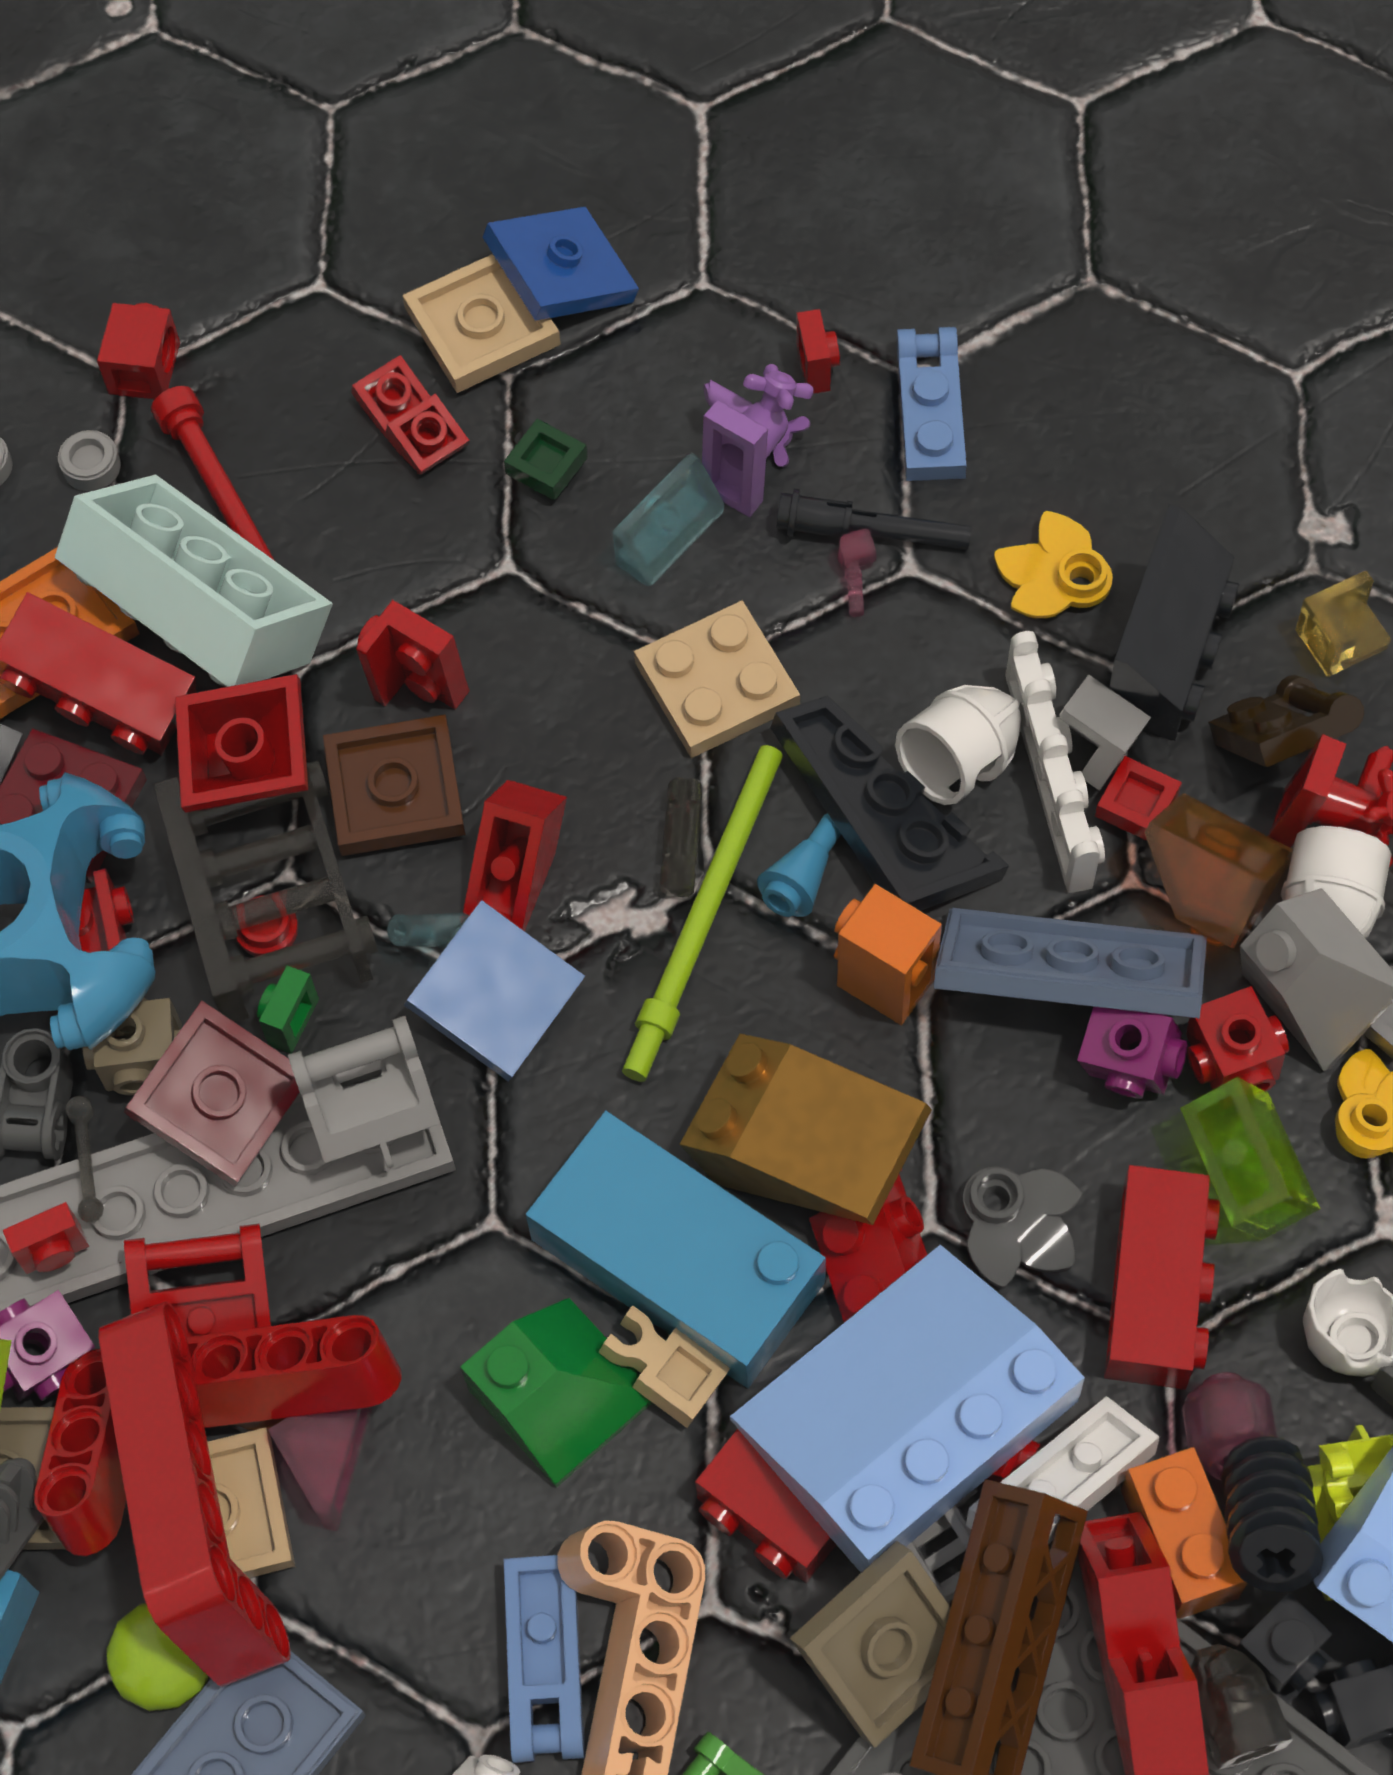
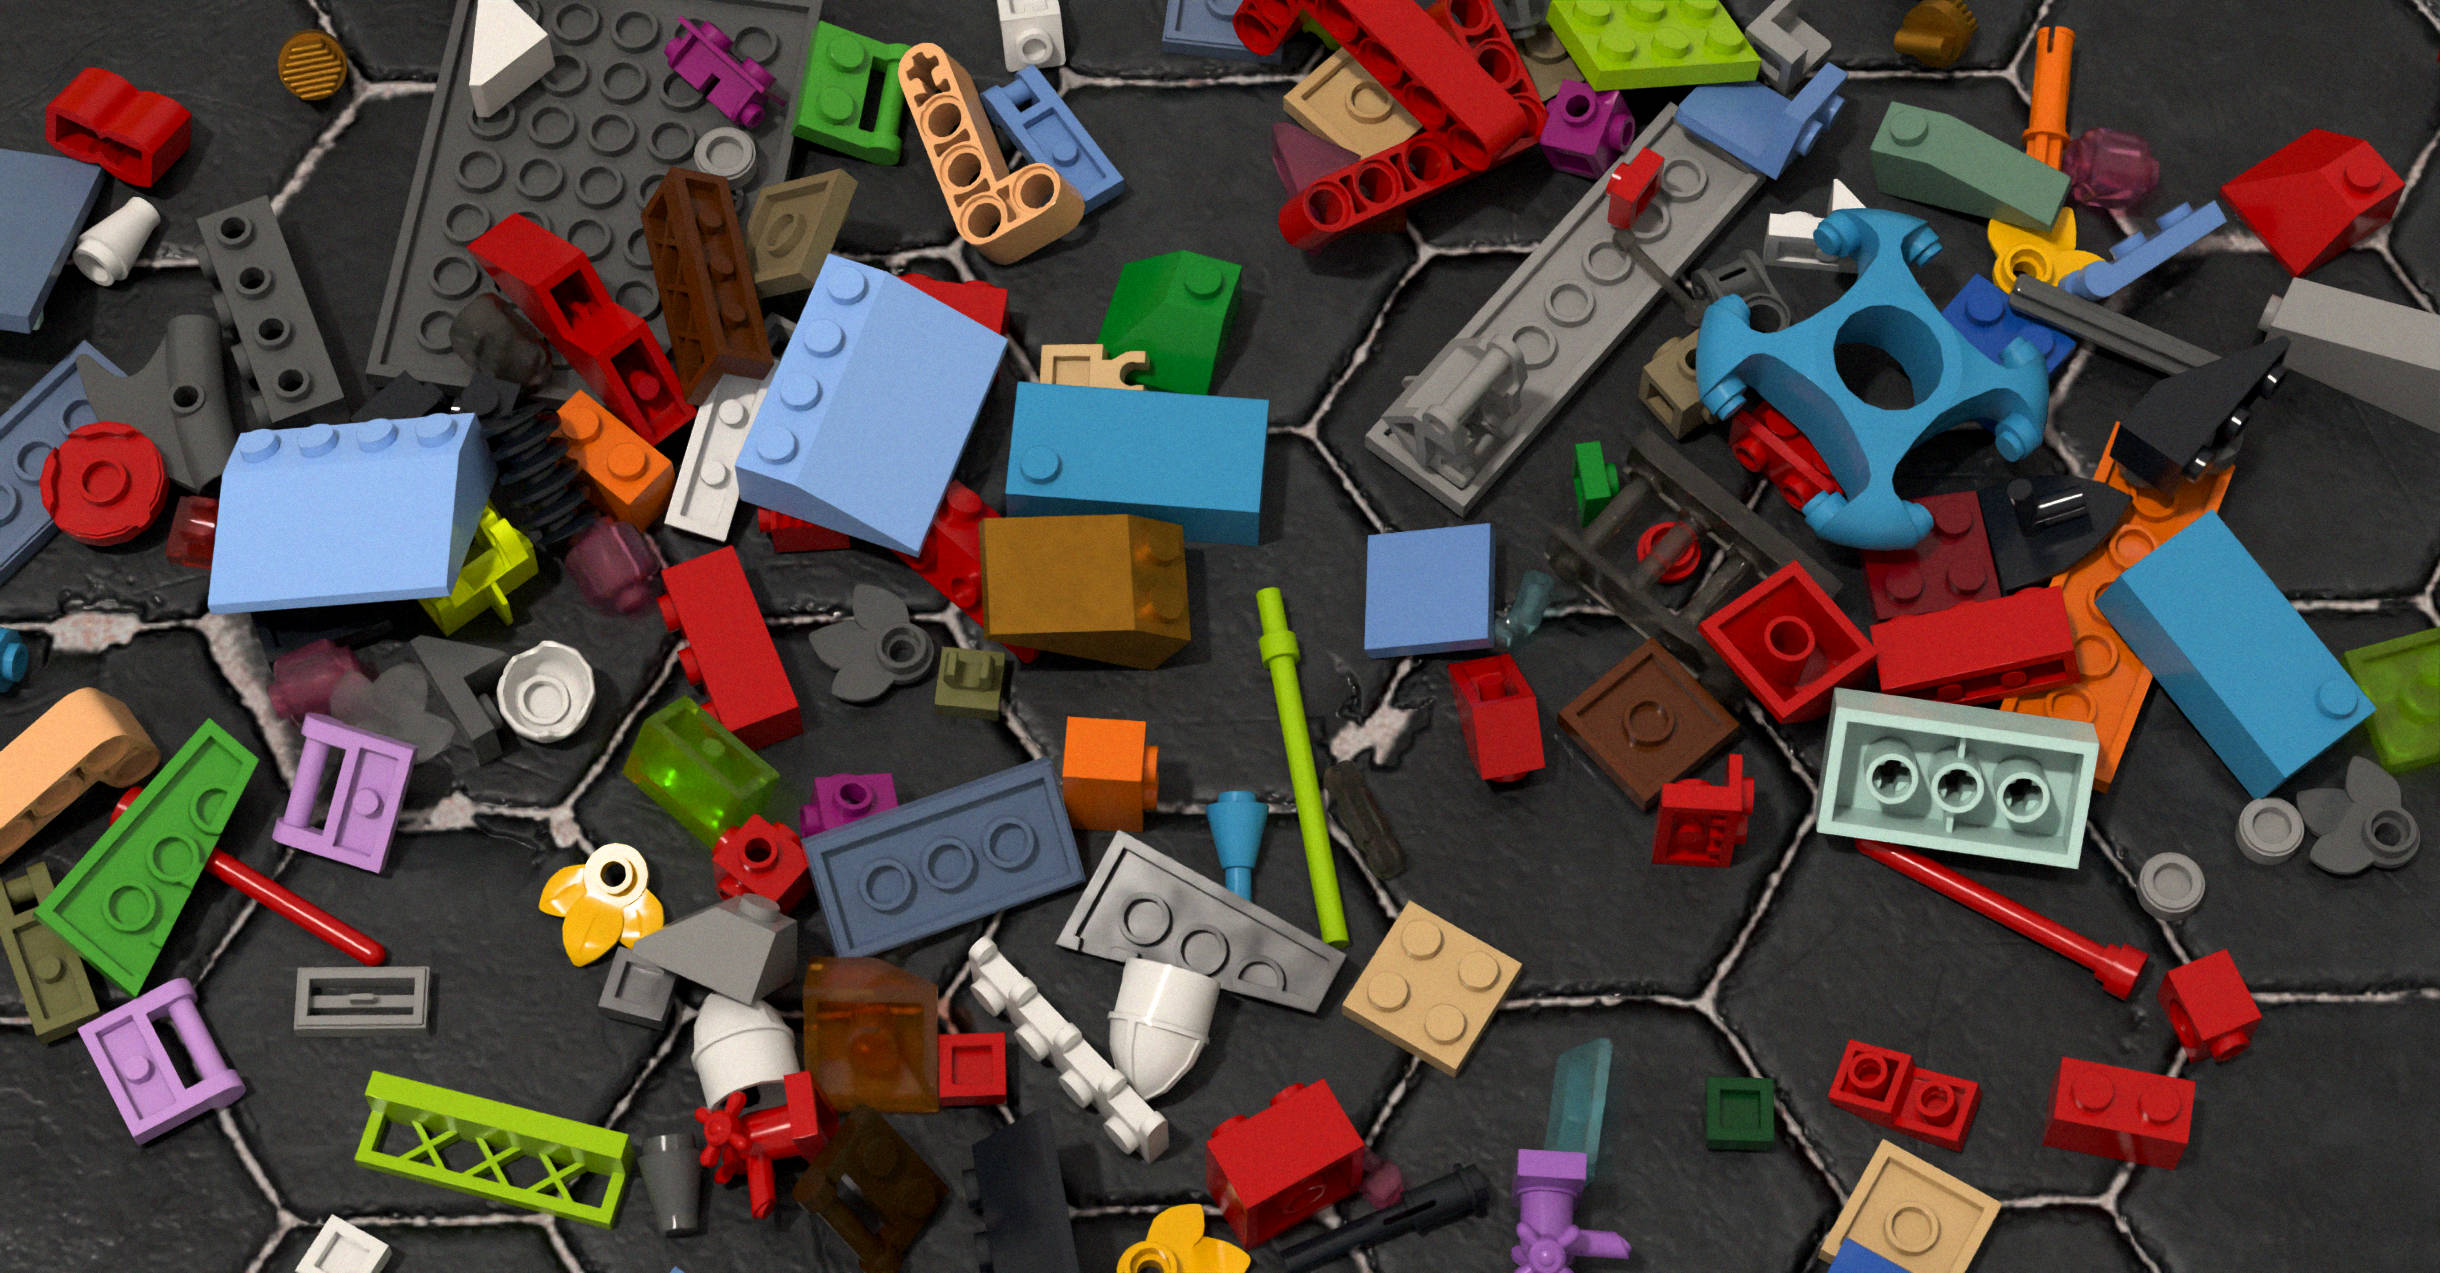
camera: 145 degrees right, 0 degrees up
(209, 1306) = (1484, 219): red plate -> none
(216, 1093) = (1584, 358): plate -> none
(268, 310) = (2119, 1113): none -> red brick
(935, 570) = (1283, 1162): none -> red brick
(951, 1142) = (970, 683): none -> olive tile
(1107, 723) = (1038, 1086): light grey panel -> none

